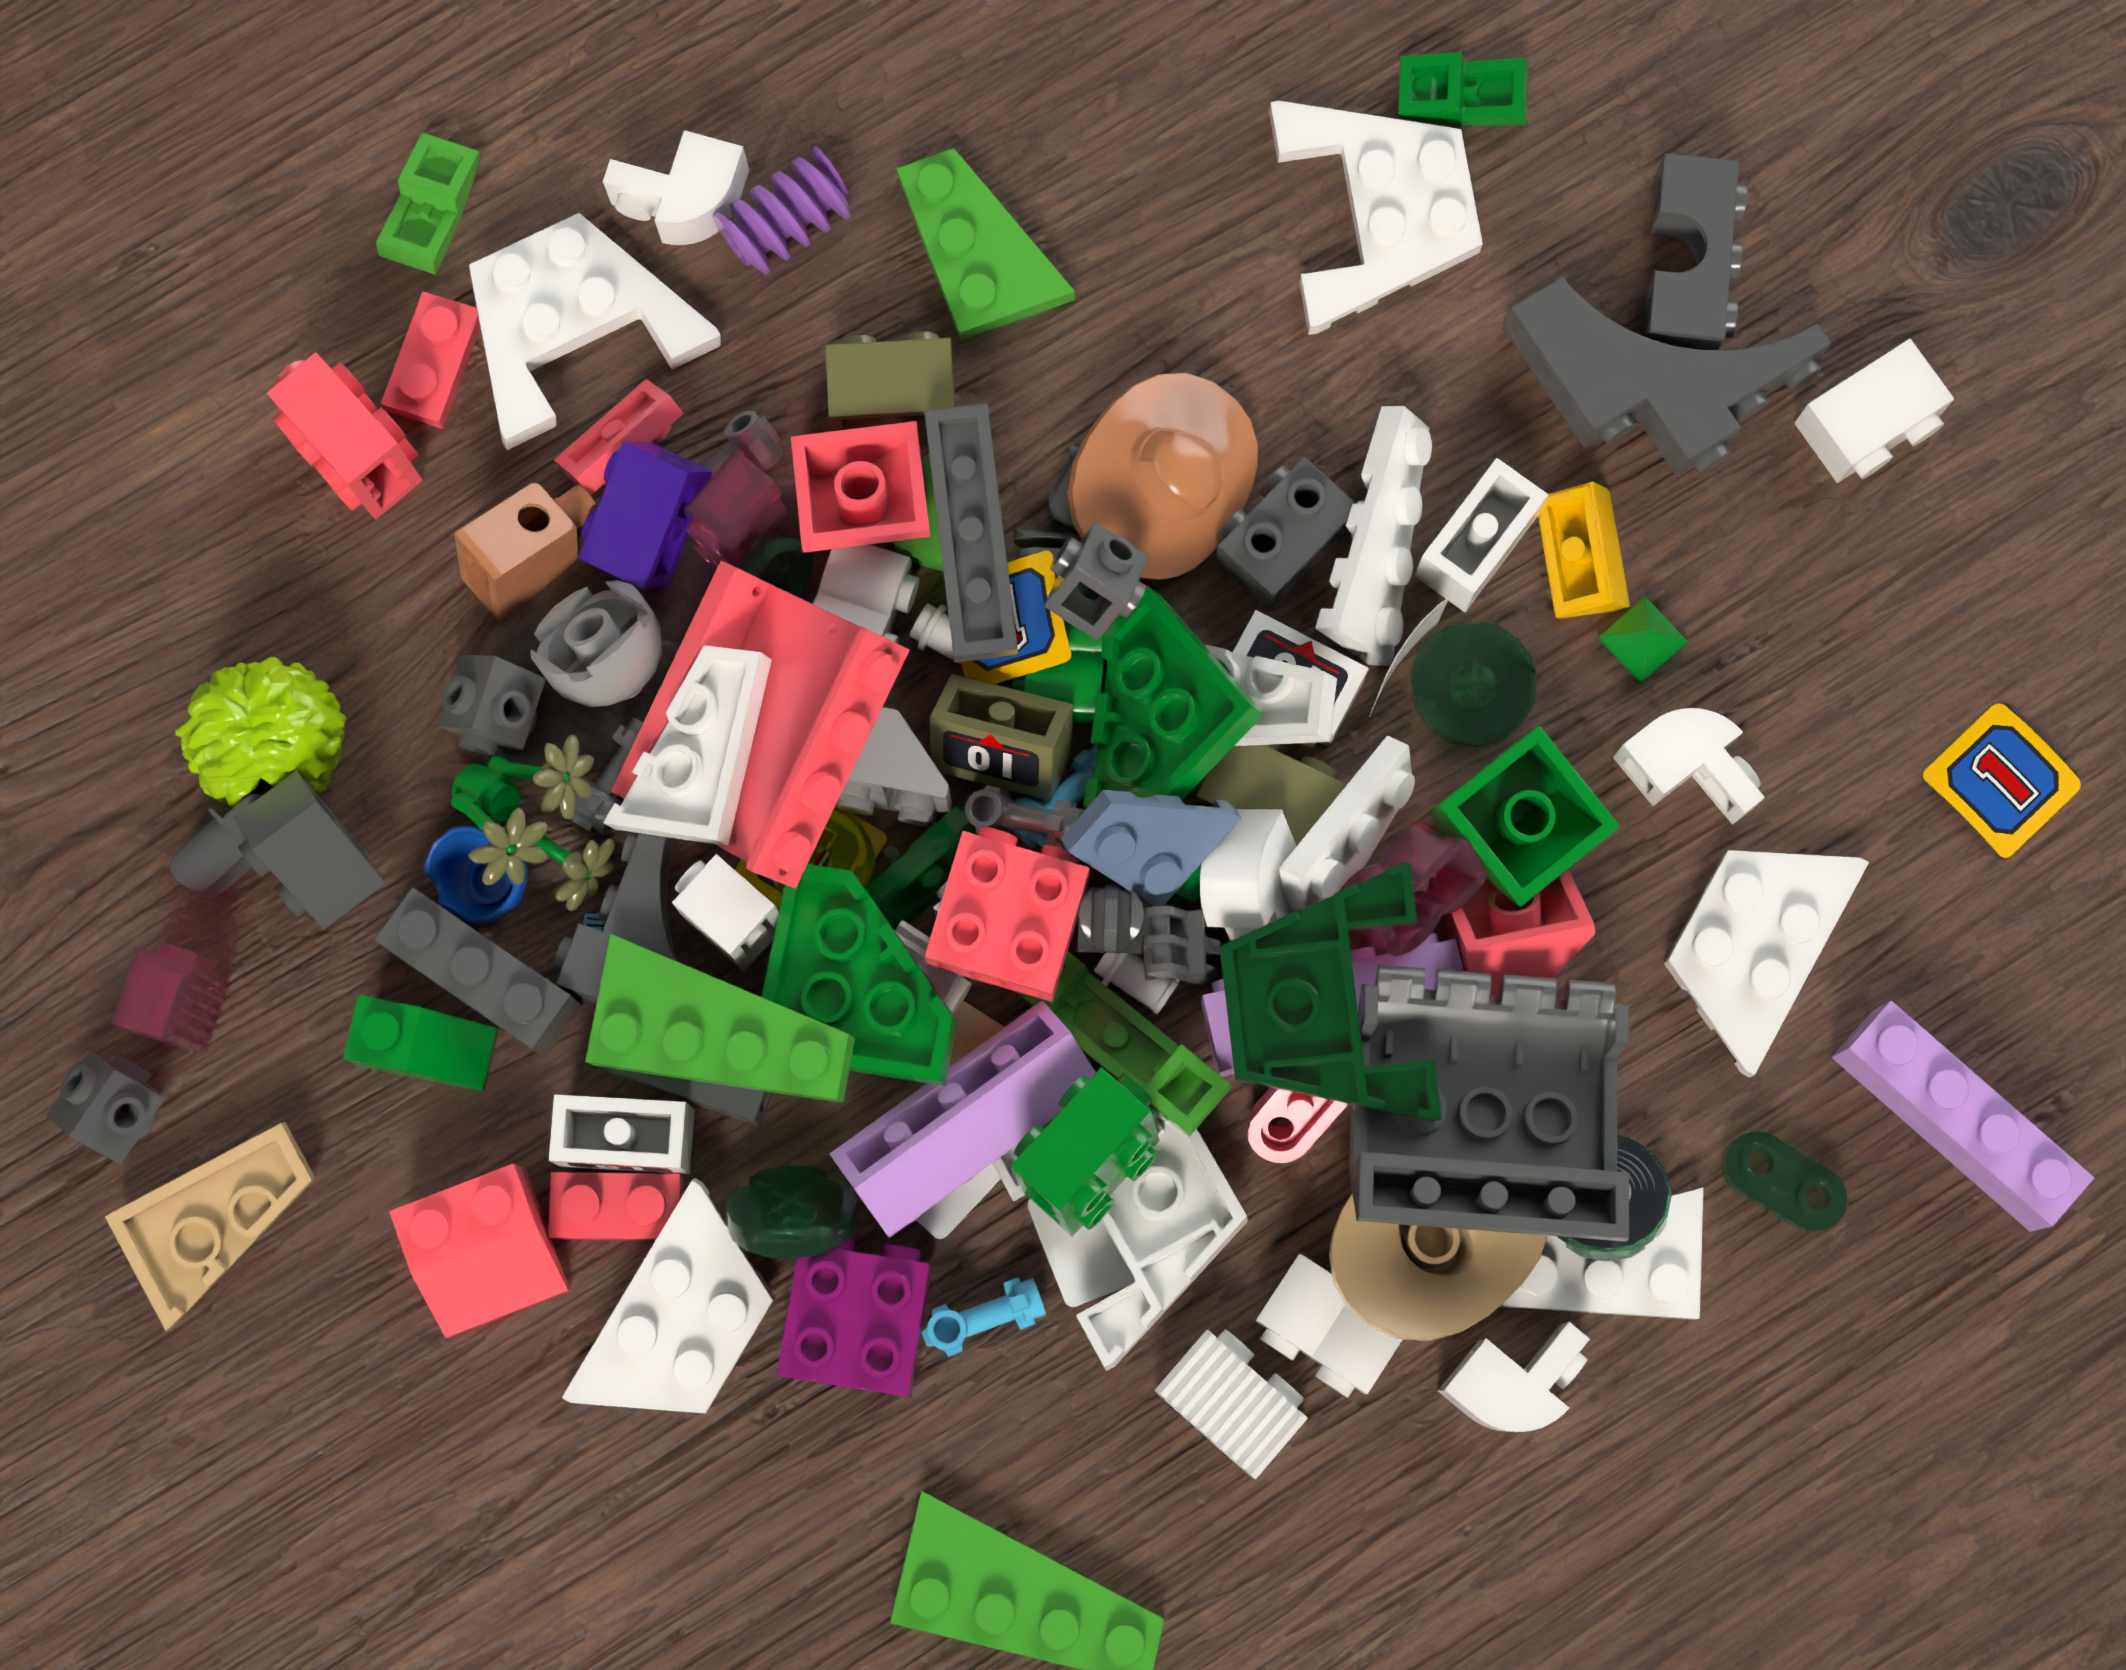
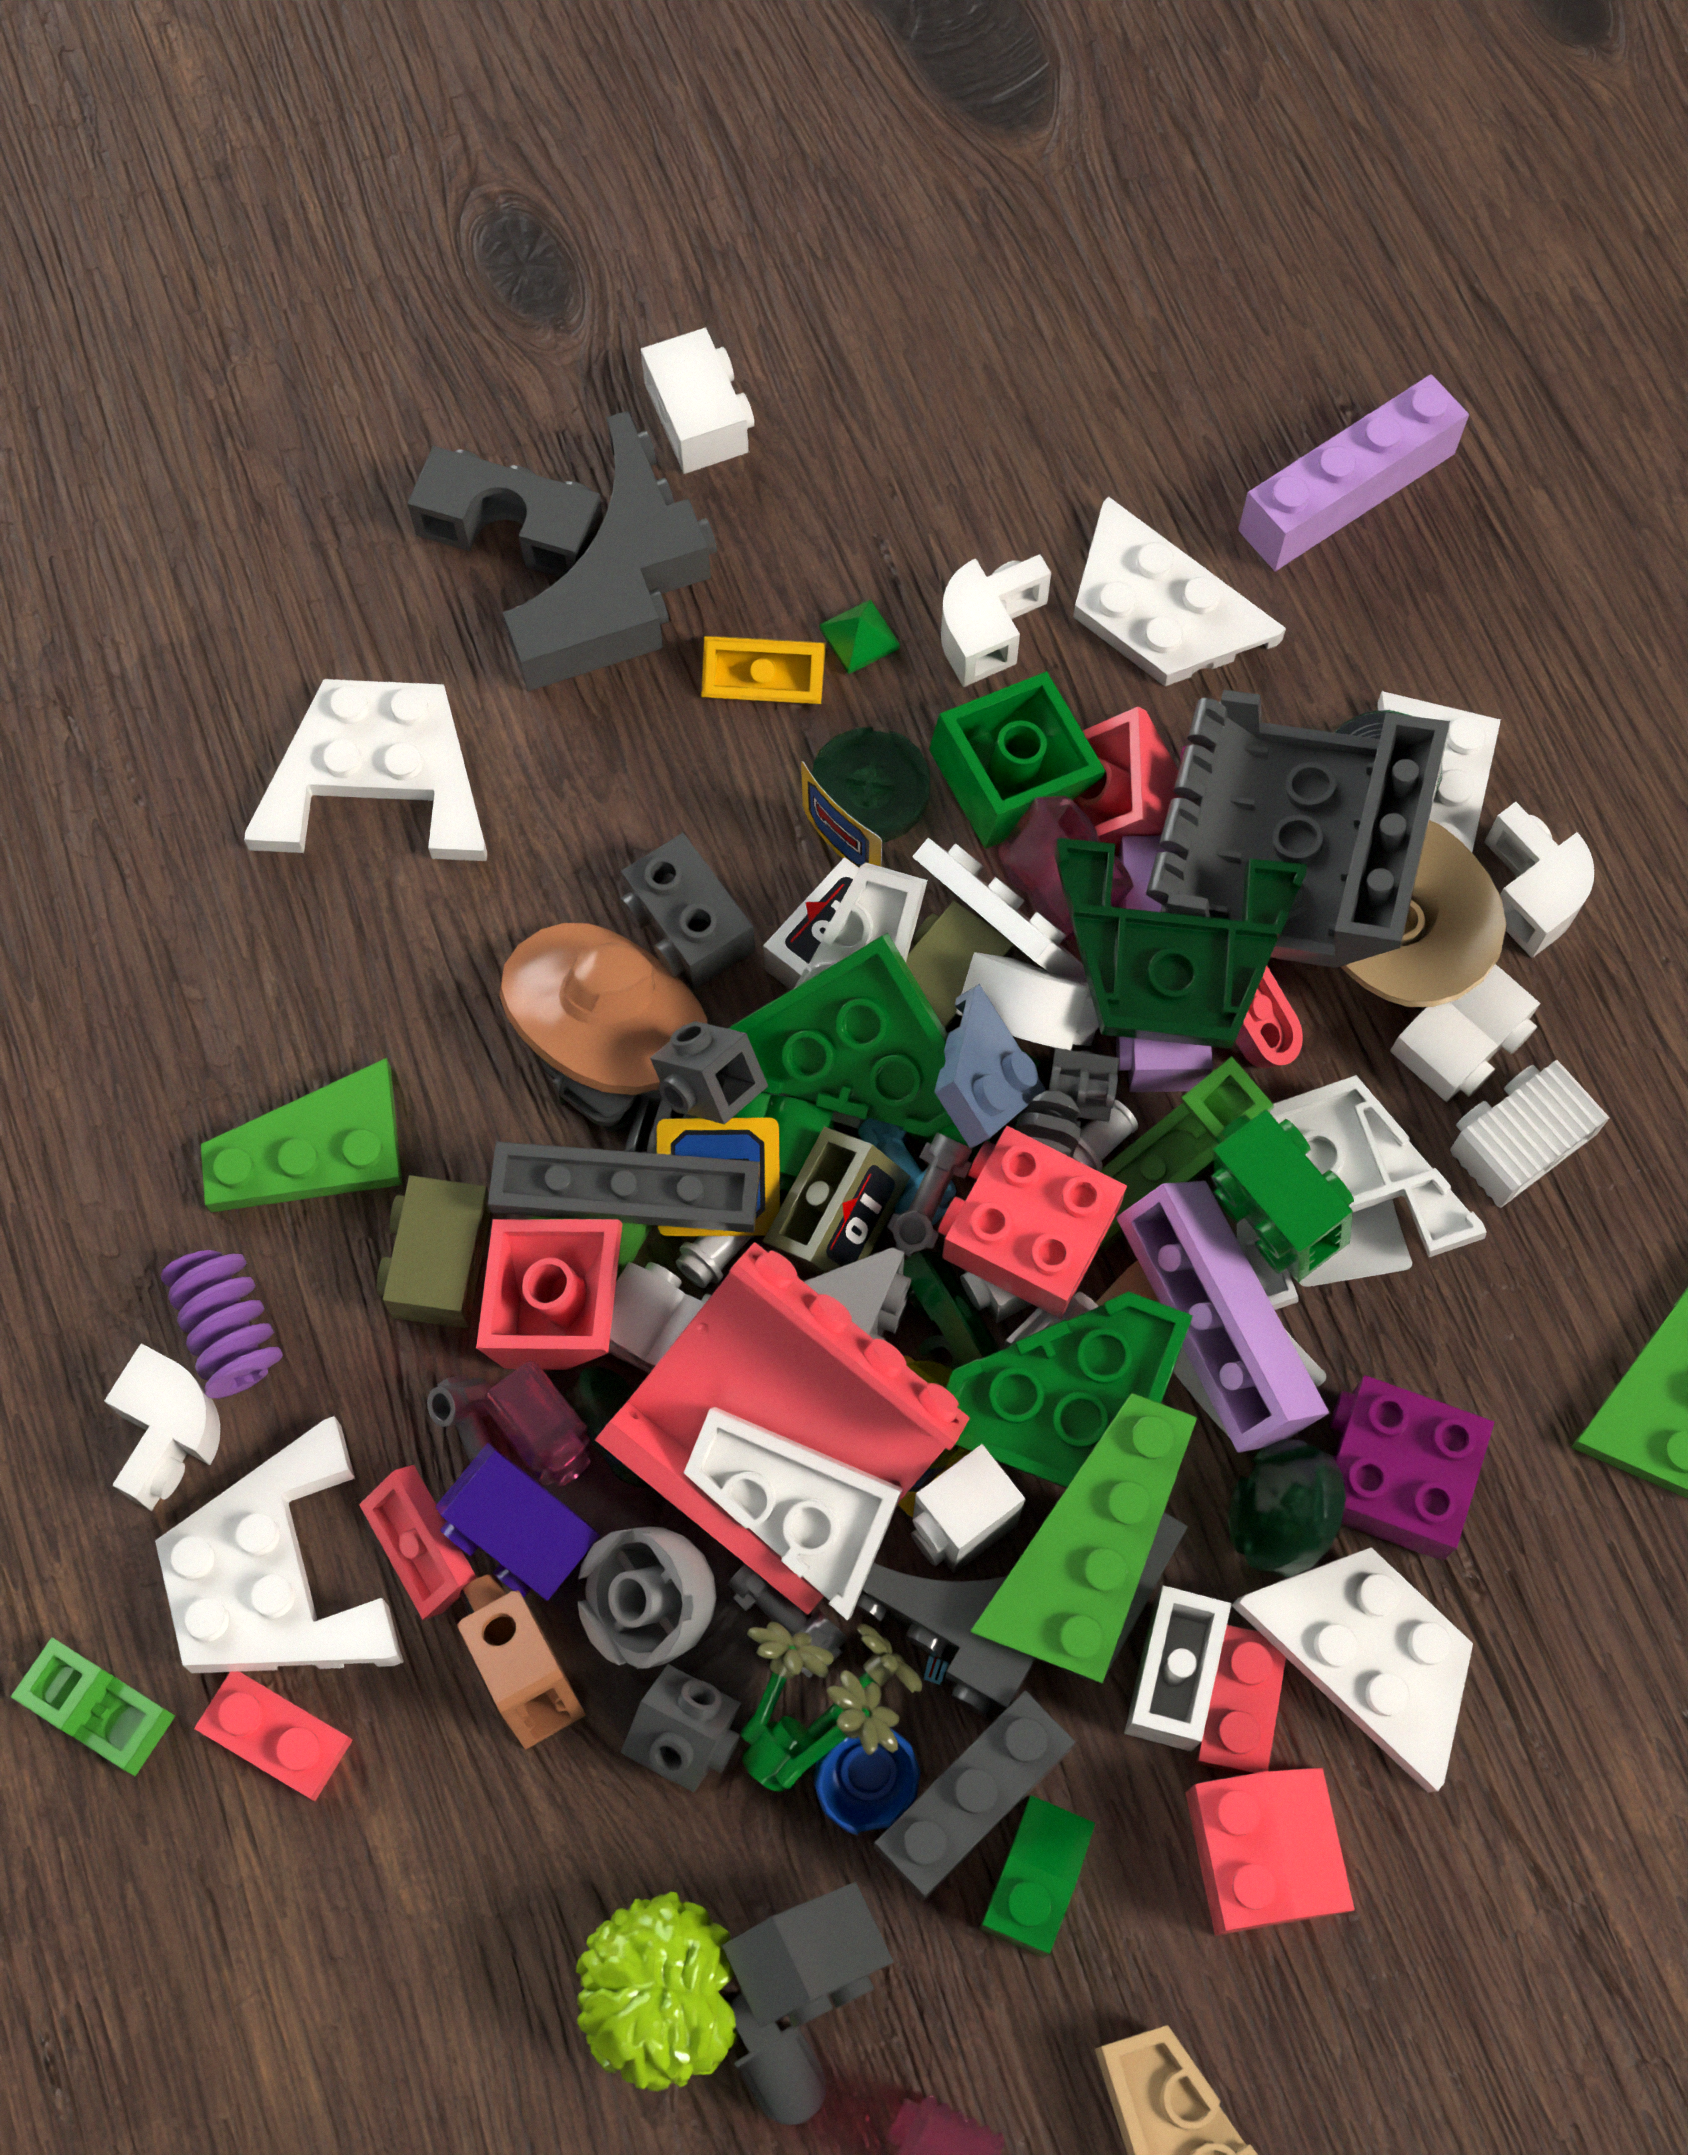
camera: 80 degrees left, 10 degrees down
(344, 435) = (328, 1842): coral brick -> none
(950, 1329) = (1403, 1310): medium azure bar -> none
(1380, 562) = (630, 791): white wing -> none
(1458, 92) = (285, 672): green slope -> none
(1481, 535) = (735, 737): white brick -> none
(1785, 1182) = (1387, 625): clear green plate -> none
(2002, 779) = (1049, 384): sticker -> none

